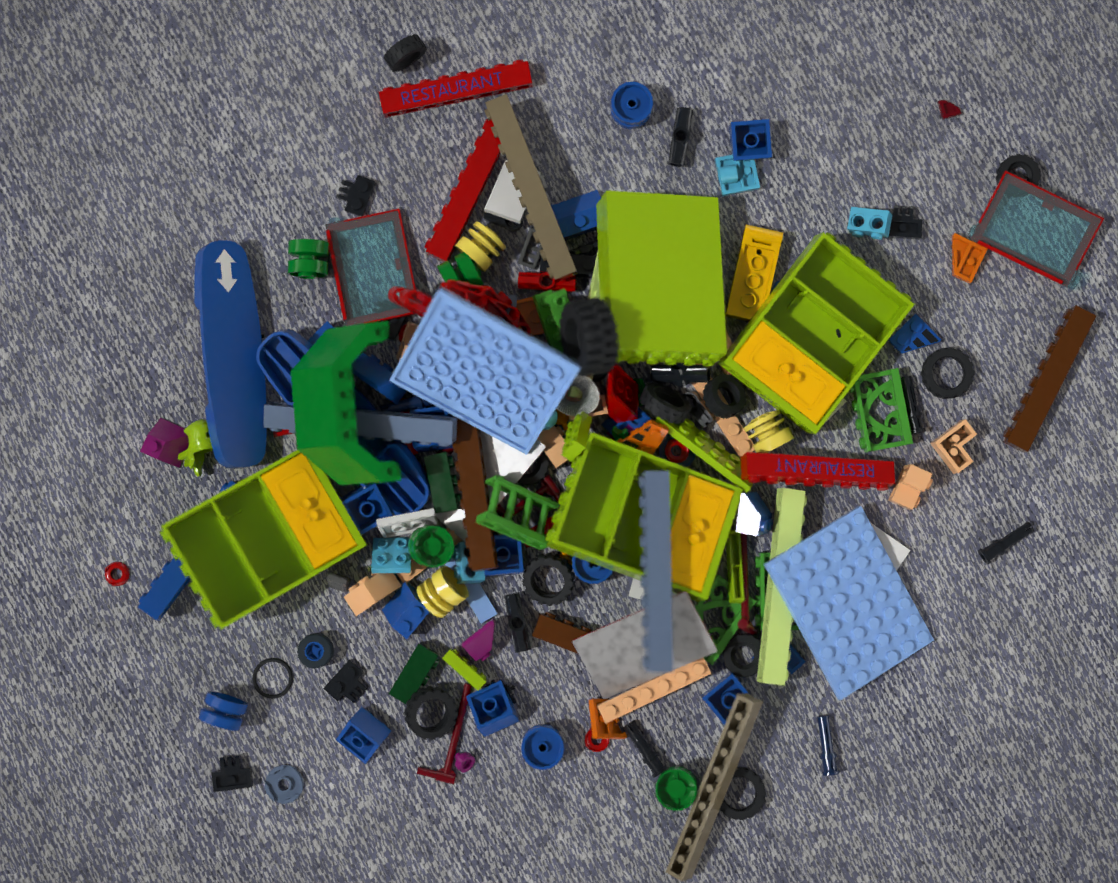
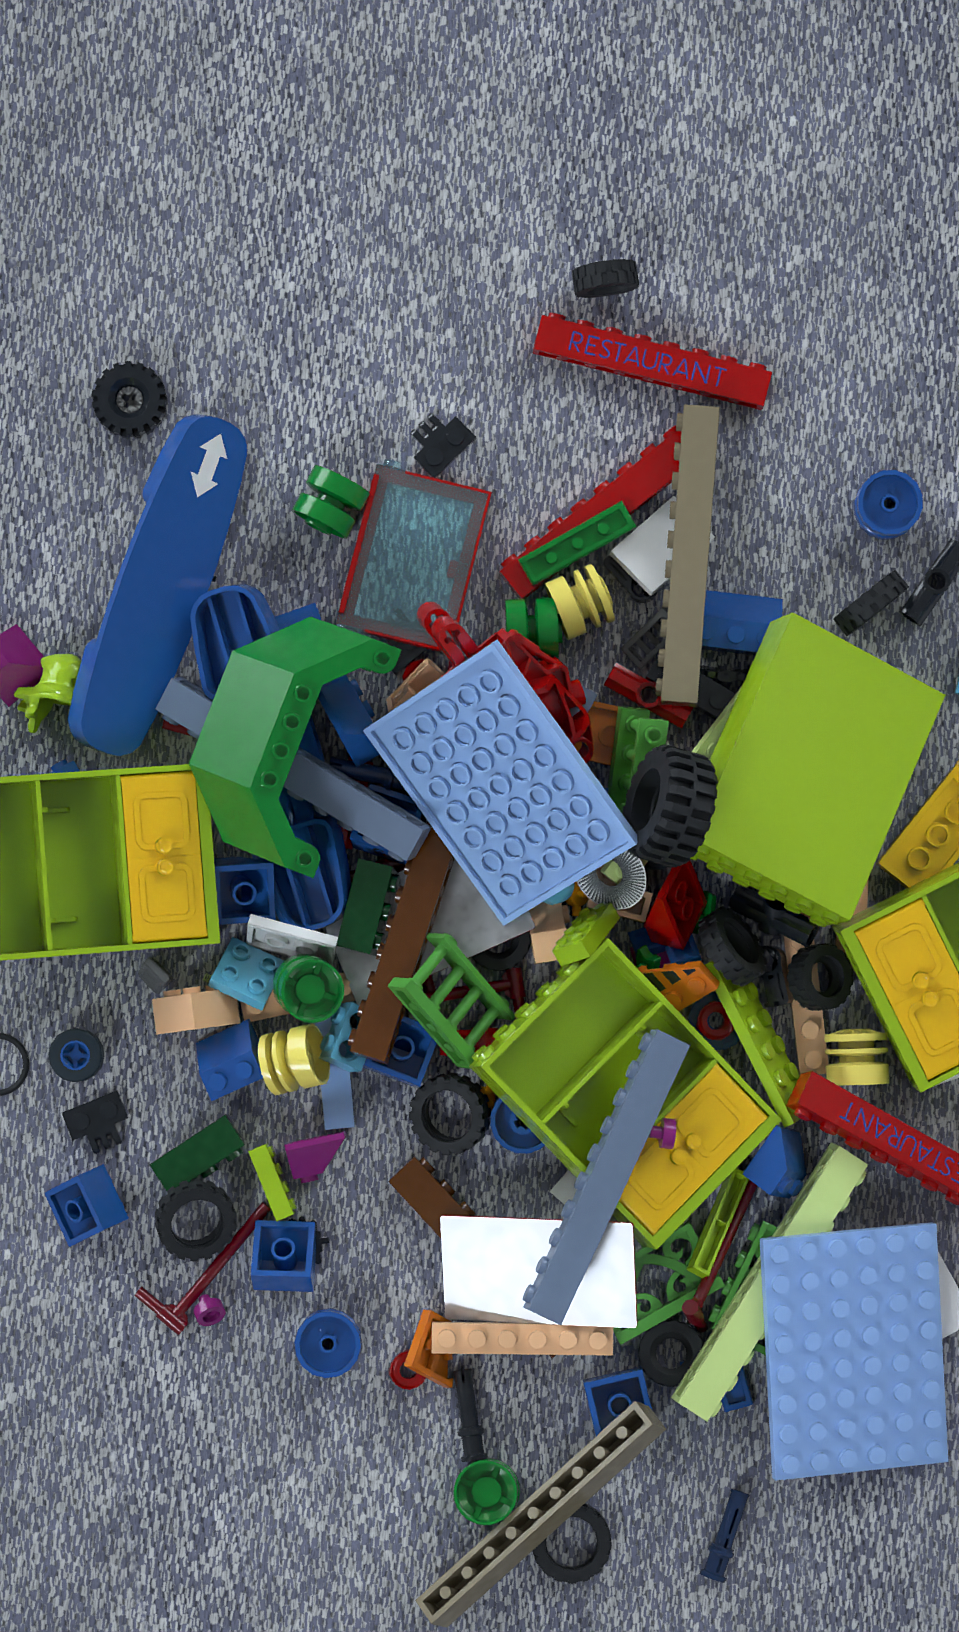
camera: 20 degrees right, 0 degrees up
(156, 246) = (129, 380): none -> black bush
(462, 213) = (577, 543): none -> green tile
(519, 635) = (372, 1172): black piece -> none
(649, 165) = (871, 603): none -> black tyre
(679, 529) = (665, 1133): none -> magenta tile

